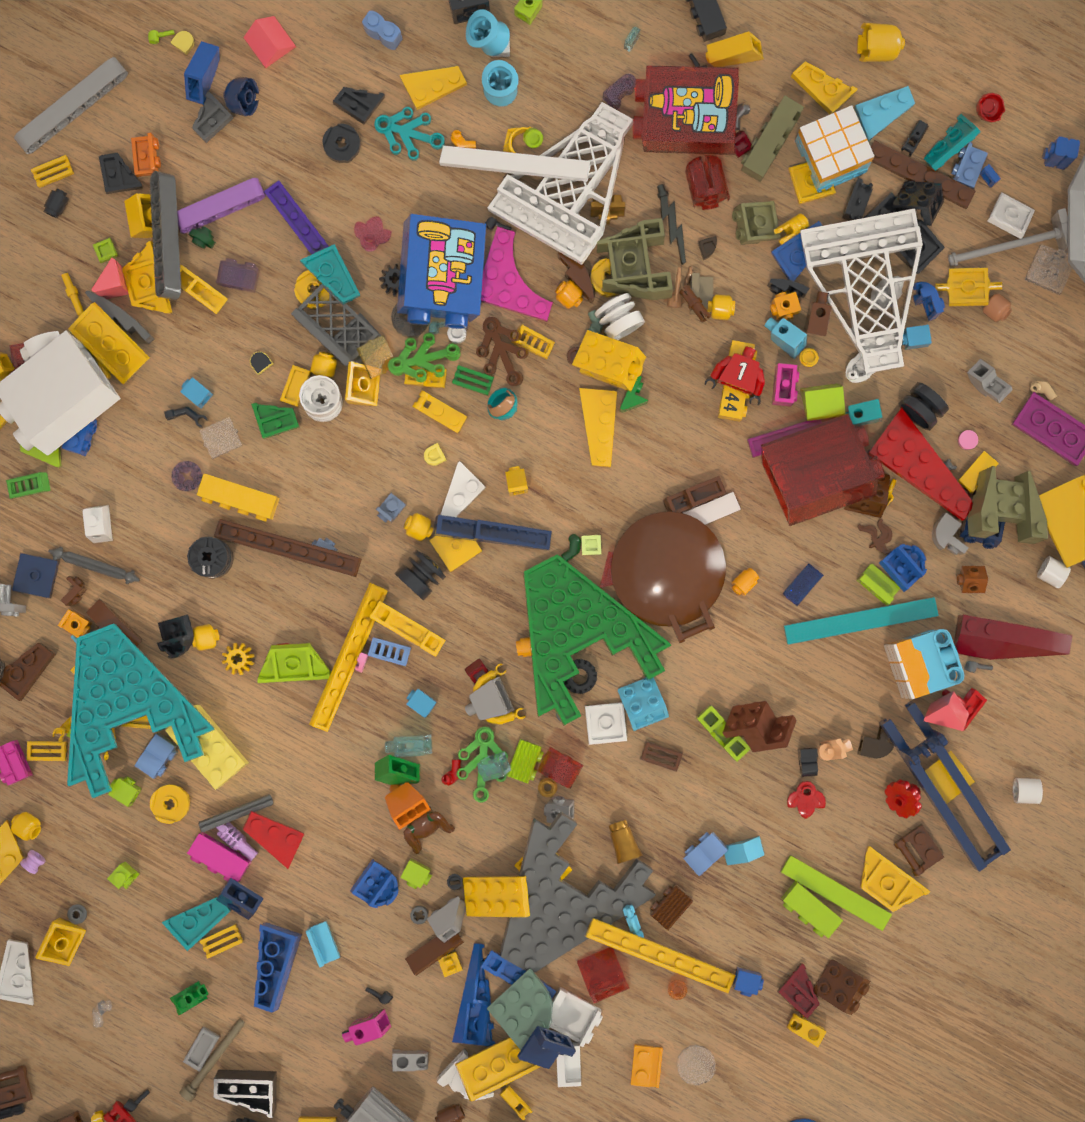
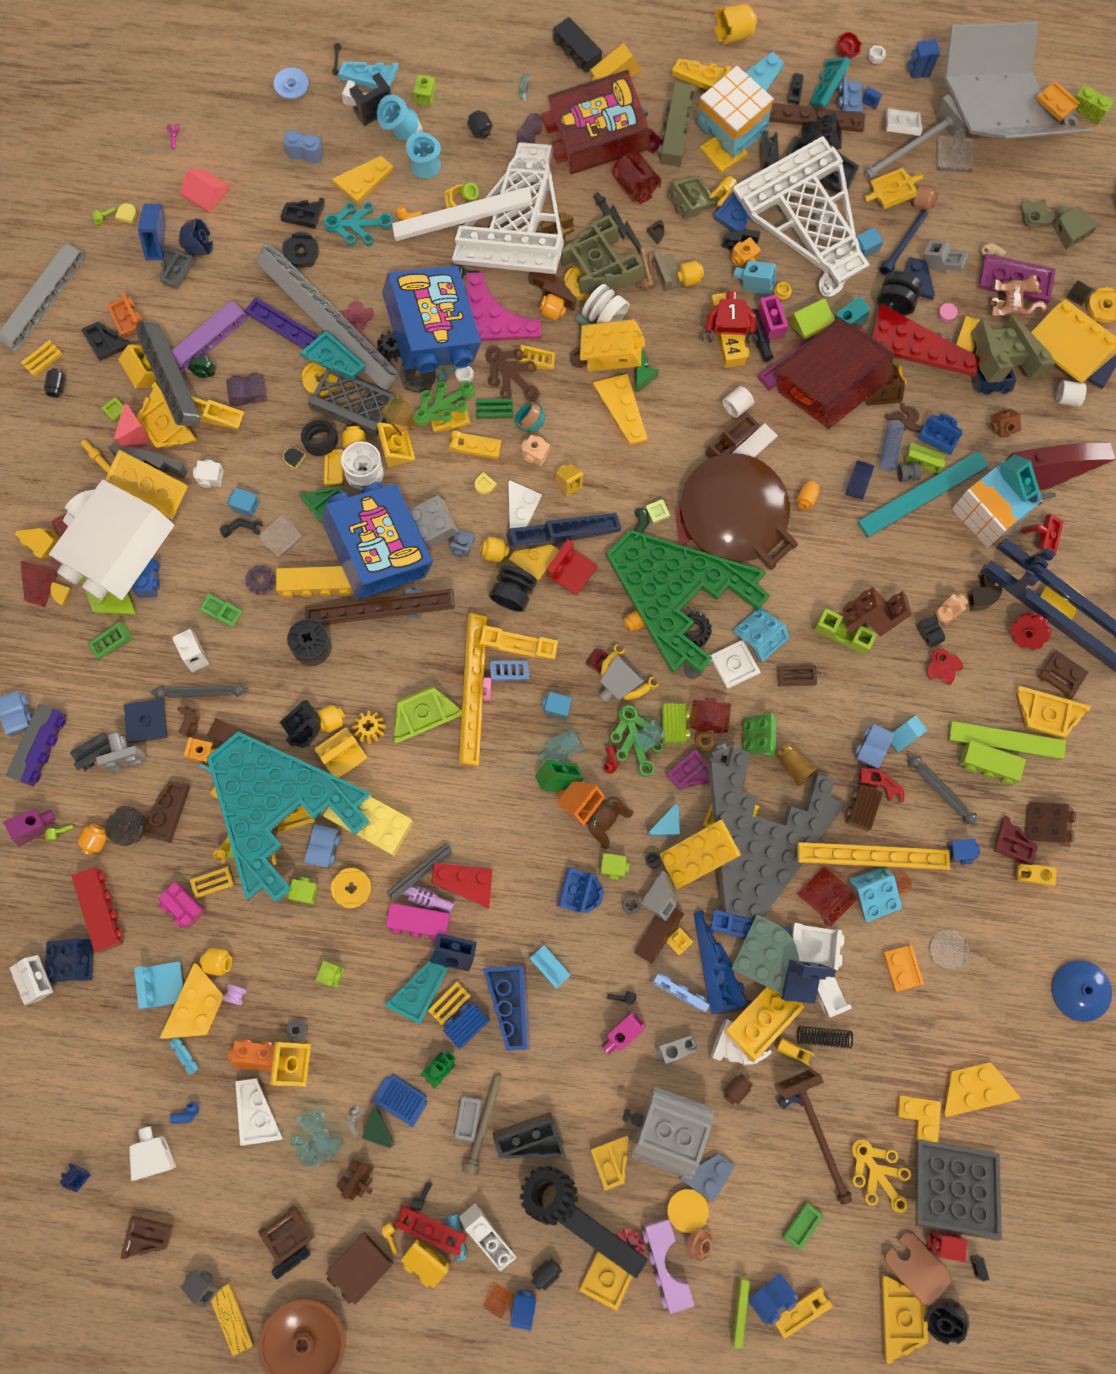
camera: 30 degrees left, 10 degrees down
(29, 923) = (252, 1055): none -> orange brick
(63, 1023) = (320, 1144): none -> clear light blue animal
(87, 1068) = (359, 1182): none -> reddish brown hips
(117, 1030) = (376, 1130): none -> dark green slope
(139, 492) = (220, 610): none -> bright green slope
(148, 1009) = (400, 1099): none -> blue window
(172, 351) = (208, 474): none -> white brick
(203, 673) = (341, 753): none -> yellow bracket
(228, 967) = (465, 1025): none -> blue brick
(289, 339) = (318, 427): none -> black tyre
(306, 480) = (375, 539): none -> blue brick
(341, 225) = (326, 315): none -> light grey beam
(367, 479) = (433, 521): none -> light grey brick
(426, 1007) = (680, 992): none -> light blue wing
(480, 854) = (668, 825): none -> medium azure slope
(485, 573) = (570, 568): none -> red bracket
(498, 446) = (535, 450): none -> light nougat brick
(522, 811) = (690, 772): none -> magenta wing
(550, 1094) = (826, 1038): none -> black piece
(570, 66) = (479, 124): none -> black head
(600, 802) = (760, 735): none -> bright green bracket
(632, 920) = (833, 833): medium azure axle -> none
(649, 989) = (876, 893): none -> medium azure bracket
(695, 303) = (667, 274): reddish brown pin -> none
(705, 896) = (883, 780): none -> red piece
(714, 461) = (738, 401): none -> white piece
(753, 916) = (934, 781): none -> dark grey wheel
(766, 398) = (763, 342): none -> black pin
(818, 324) = (778, 249): reddish brown torso -> none
(854, 594) = (909, 472): none -> dark grey wheel
(863, 546) = (888, 446): none -> medium blue piece
(927, 369) = (889, 265): none -> dark blue piece
(930, 299) = (866, 207): blue slope -> none
(943, 535) = (963, 395): light grey brick -> none
(947, 712) = (1036, 536): coral slope -> none
(948, 653) = (1020, 477): none -> teal slope
(954, 391) = (920, 269): none -> dark blue wing
(1017, 127) = (876, 54): none -> white tile
(1041, 446) = (1014, 297): none -> nougat animal

